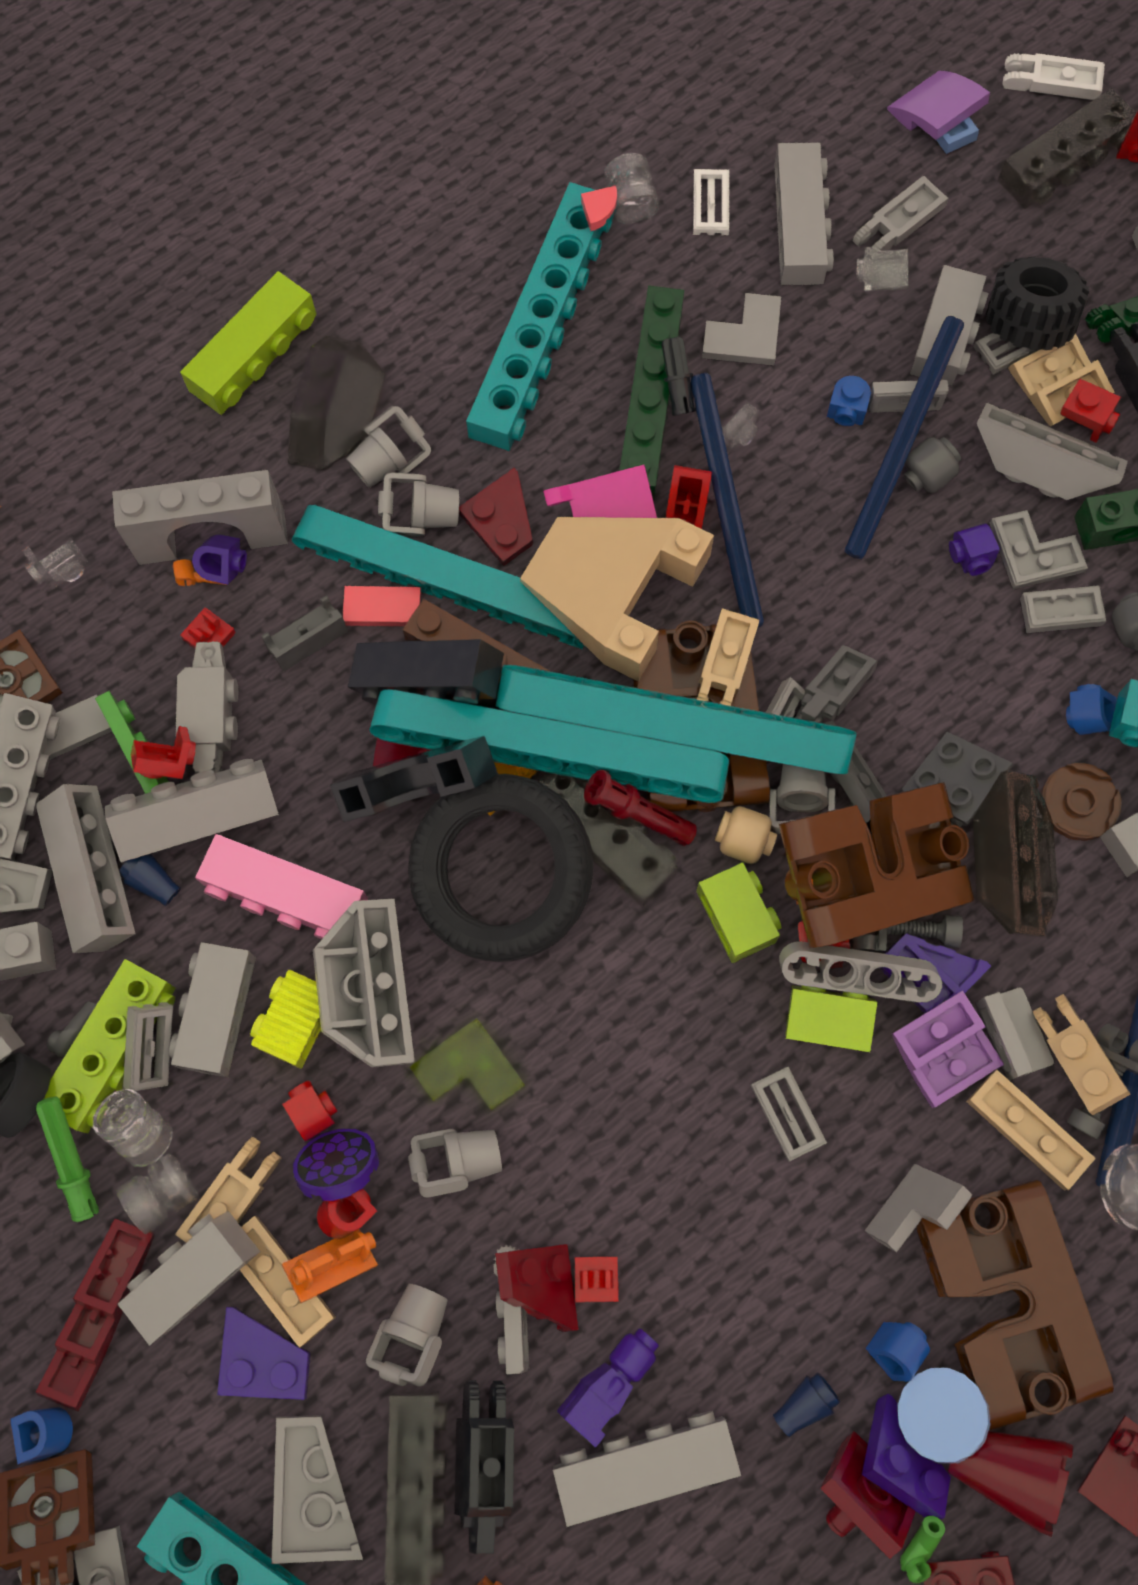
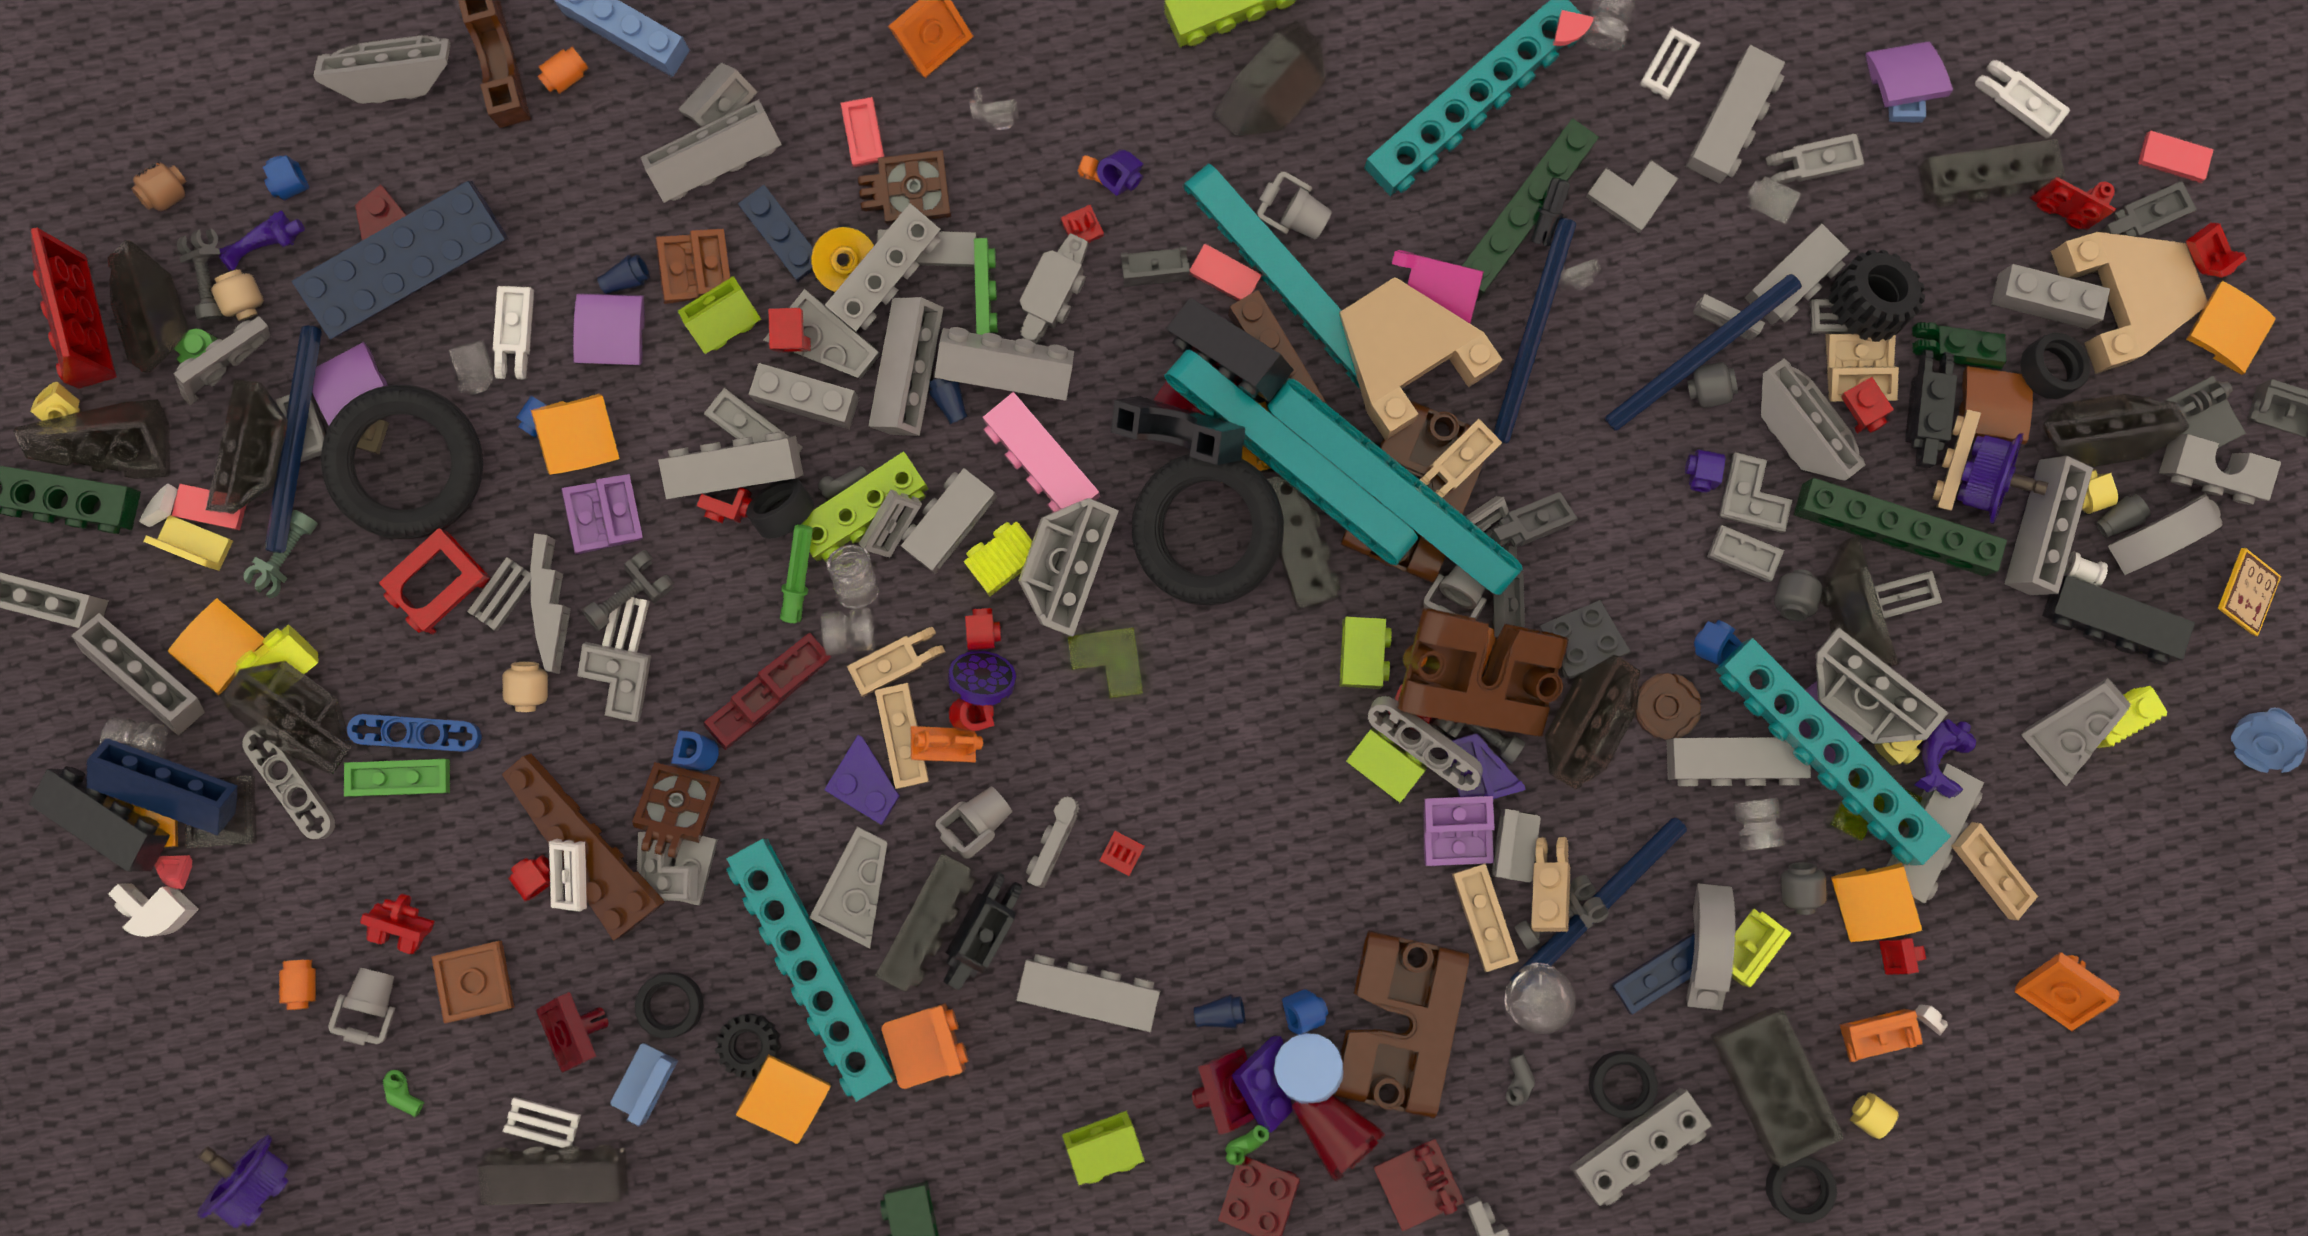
camera: 25 degrees right, 10 degrees up
(152, 513) = (1087, 116): light grey arch -> none
(161, 760) = (1001, 315): red bracket -> none
(187, 1275) = (843, 699): light grey brick -> none
(378, 453) = (1283, 148): light grey piece -> none
(468, 1158) = (1076, 721): light grey piece -> none
(500, 517) = (1353, 249): dark red wing -> none
(539, 1283) = (1081, 835): dark red wing -> none
(608, 1386) = (1090, 928): dark purple piece -> none
(627, 803) = (1325, 530): dark red pin -> none
(689, 495) = (1503, 315): red slope -> none
(745, 835) = (1401, 598): tan head -> none
(794, 1089) = (1318, 843): light grey tile -> none
(849, 401) = (1680, 297): blue plate -> none
(917, 1197) = (1377, 919): light grey tile -> none

